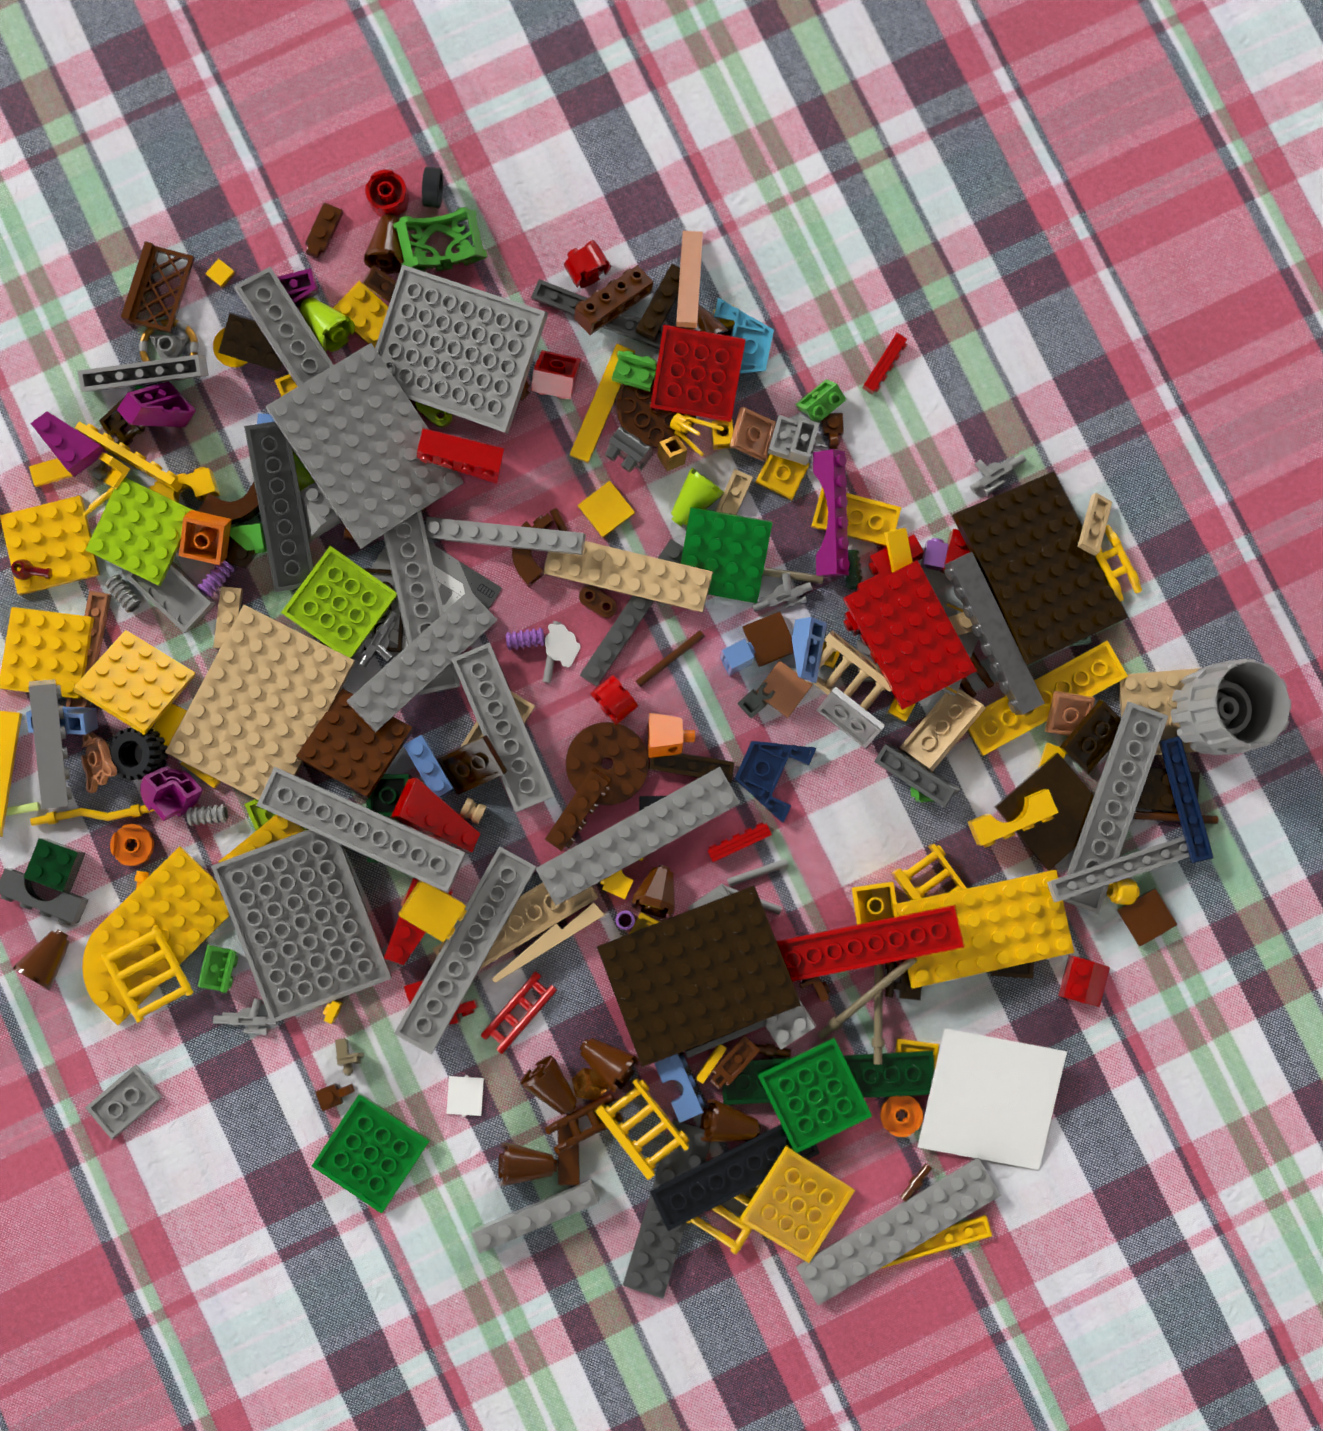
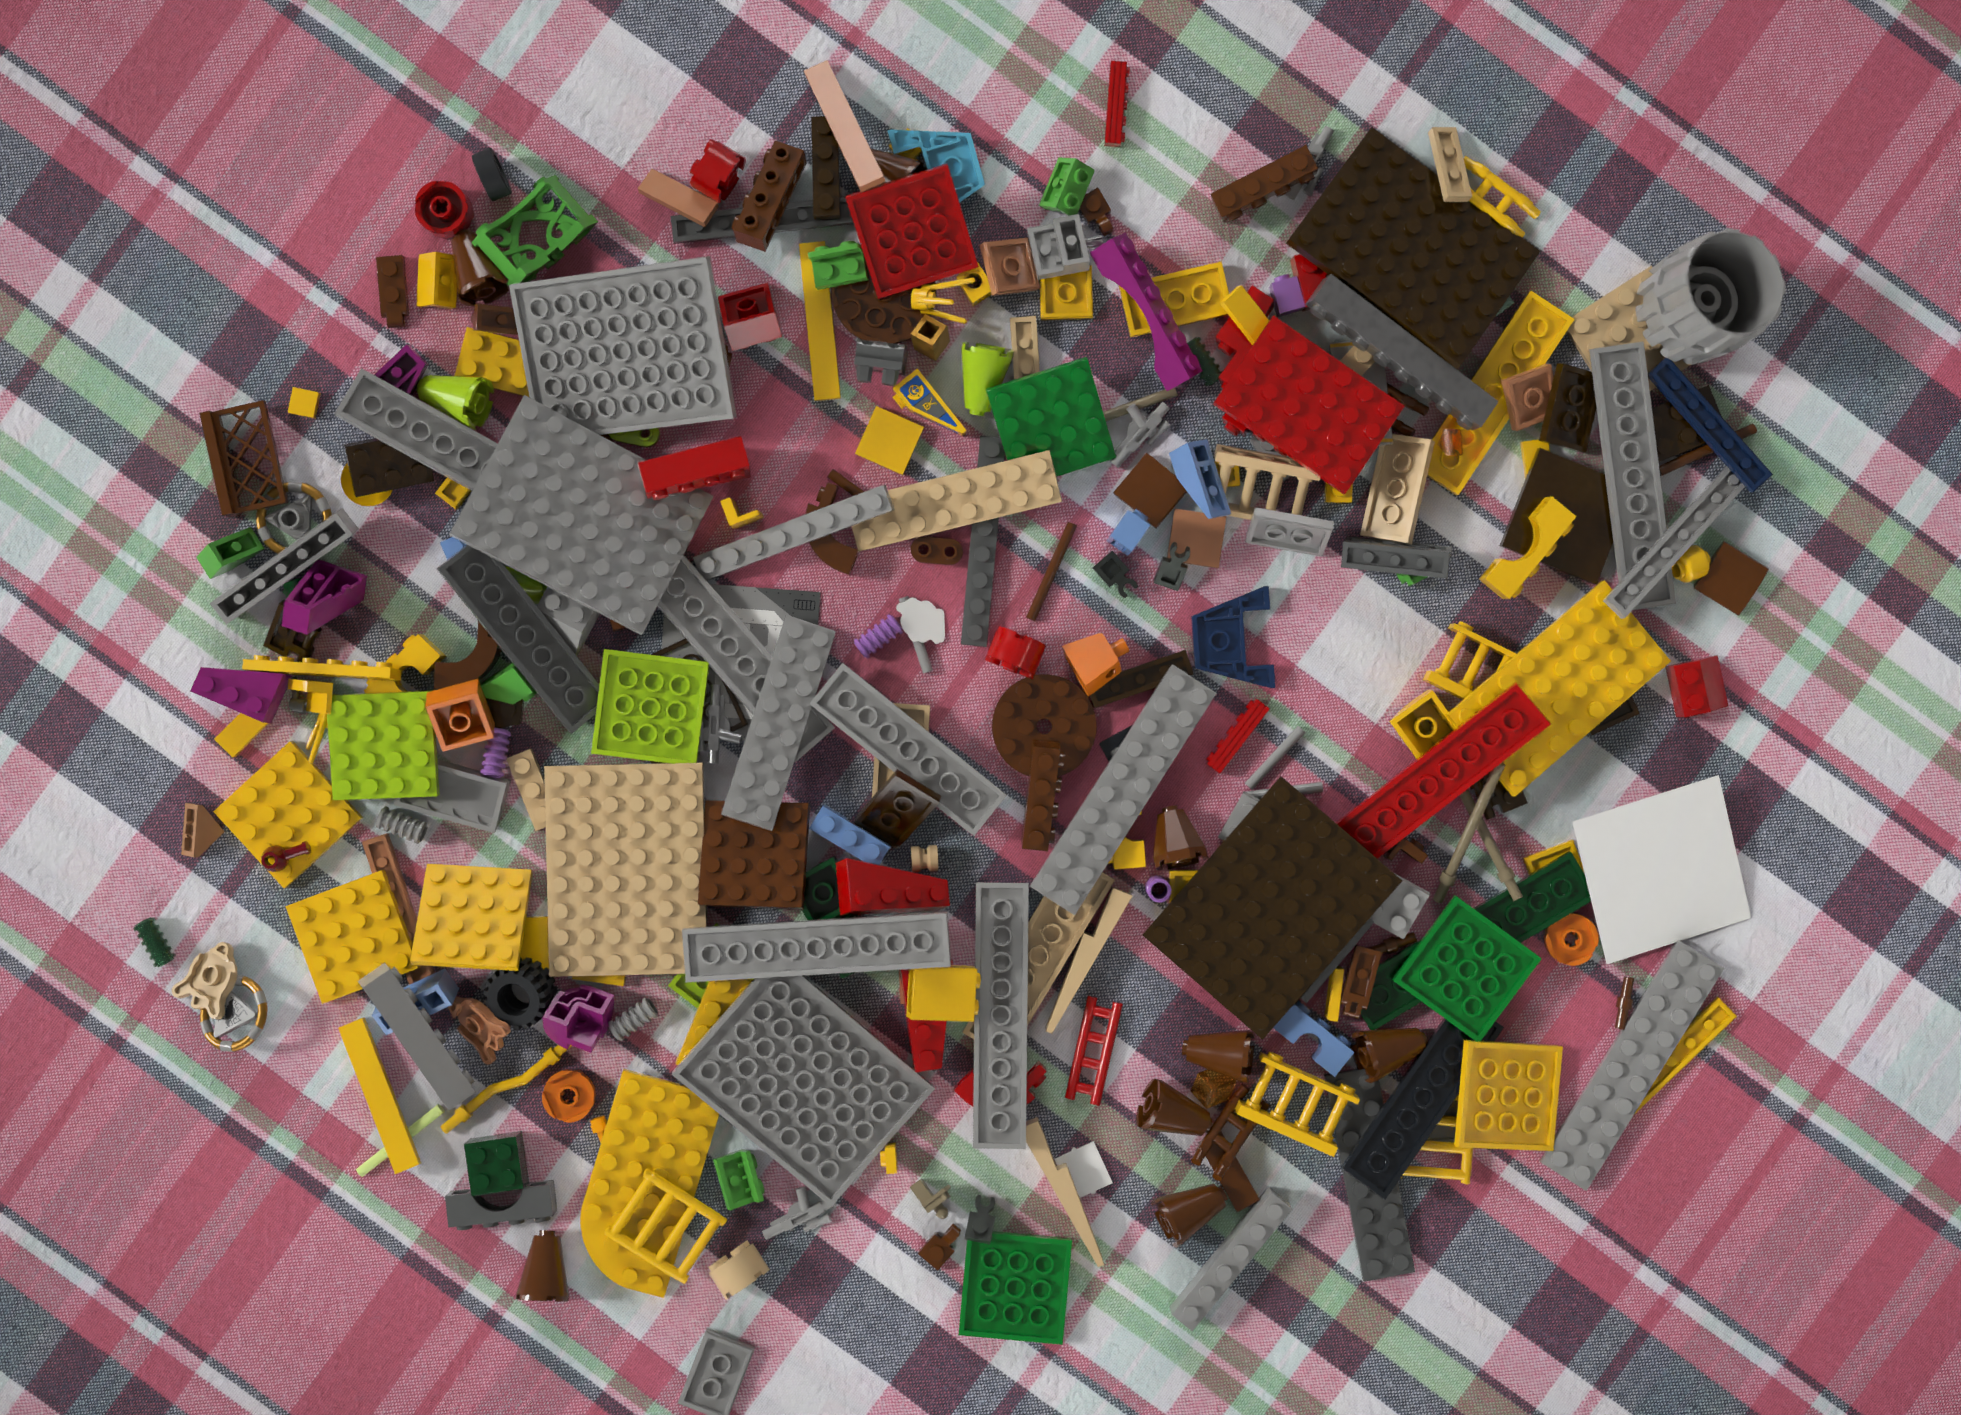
camera: 25 degrees left, 5 degrees up
(112, 345) = (229, 552): none -> bright green slope
(180, 1033) = (738, 1271): none -> tan brick
(355, 239) = (436, 280): none -> yellow panel
(370, 1093) = (980, 1224): none -> pearl dark grey plate
(444, 1098) = (1063, 1185): none -> tan slope
(470, 503) = (734, 517): none -> yellow panel
(550, 269) = (678, 197): none -> nougat tile
(644, 495) = (922, 400): none -> slope
(713, 680) = (1112, 571): none -> pearl dark grey plate
(959, 469) = (1264, 183): none -> reddish brown brick
(997, 715) = (1451, 442): none -> clear orange slope

